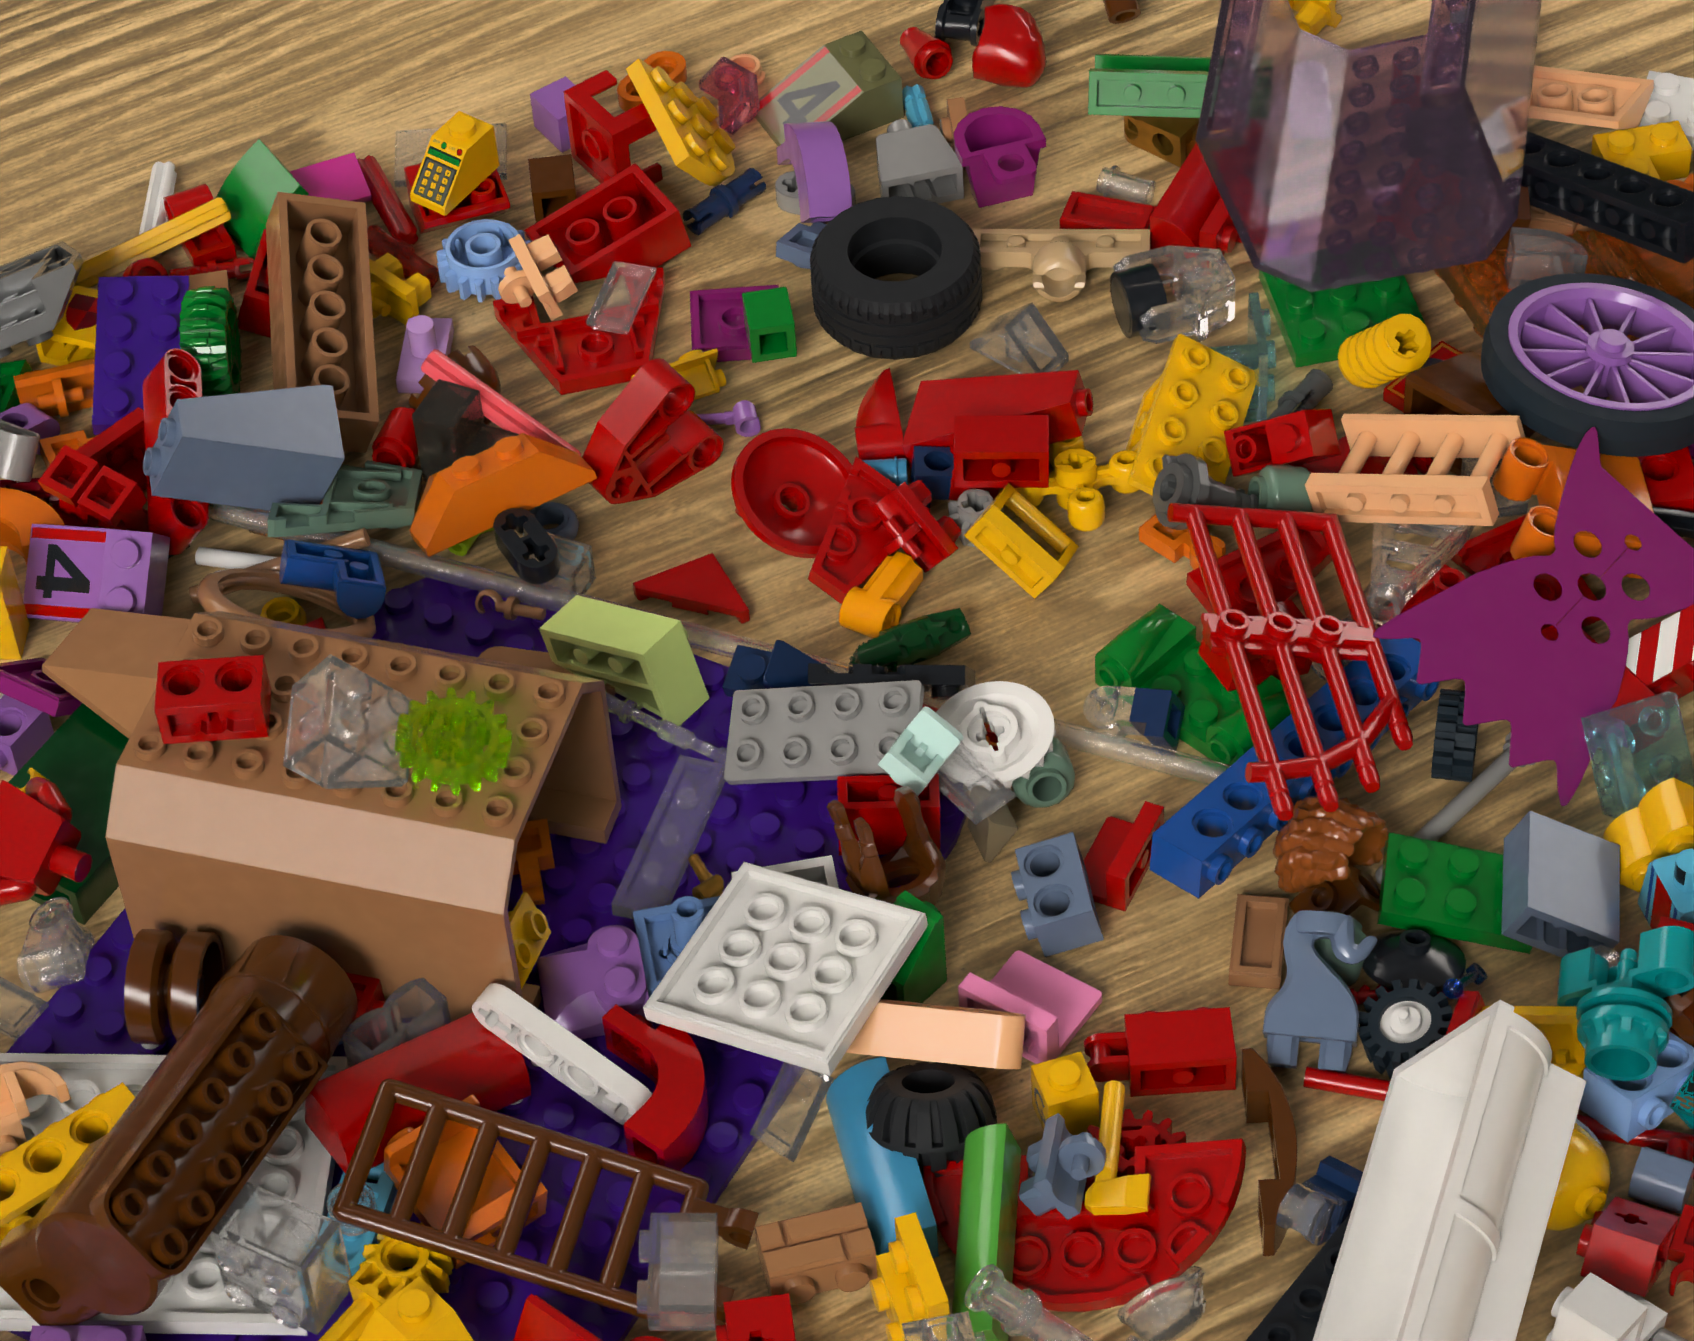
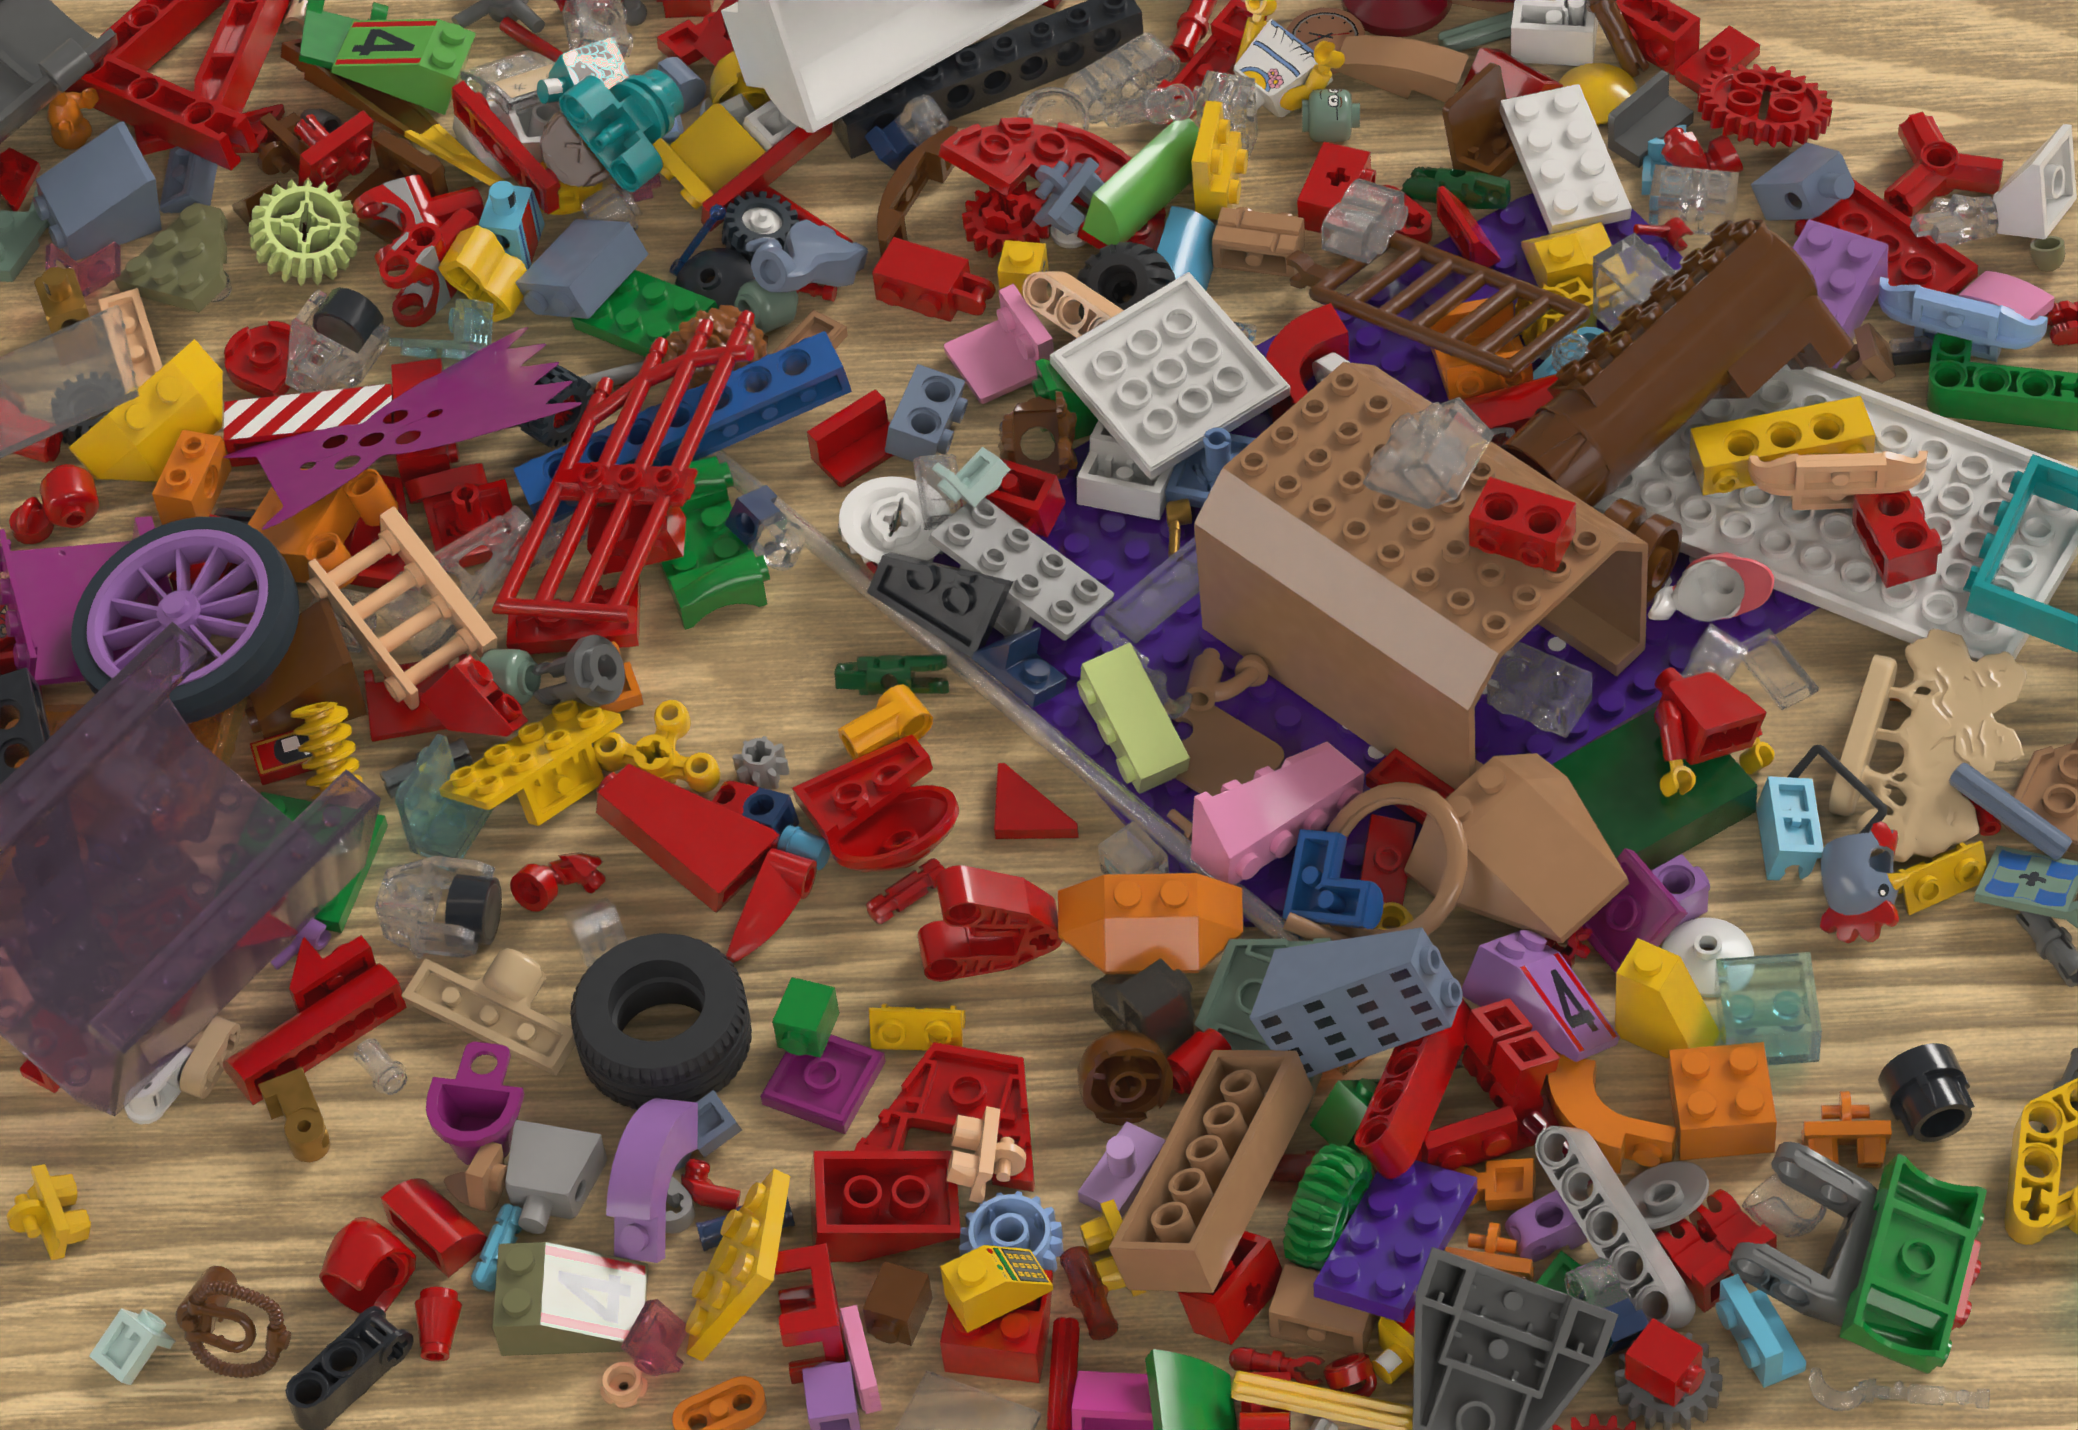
camera: 150 degrees left, 5 degrees up
(76, 1018) = (1715, 589): none -> white hair
(442, 586) = (1262, 818): none -> bright pink wedge
(453, 741) = (1354, 411): clear neon green gear -> none
(494, 405) = (1100, 1008): coral axle -> none
(518, 549) = (1146, 852): black beam -> none
(553, 139) = (860, 1359): none -> bright pink tile
(620, 297) = (916, 1112): clear tile -> none
(743, 416) = (881, 966): medium lavender hand -> none
(775, 208) = (704, 1191): none -> red arm
(915, 527) = (818, 751): red hips -> none
(981, 91) = (433, 1225): none -> red brick
(1001, 451) = (711, 762): red brick -> none
(1014, 549) = (751, 696): yellow tile -> none
(1101, 212) = (418, 1046): red tile -> none
(1101, 353) = (537, 886): none -> red arm
(1108, 1193) = (1031, 157): yellow piece -> none
(1147, 85) = (293, 1096): green fence -> none

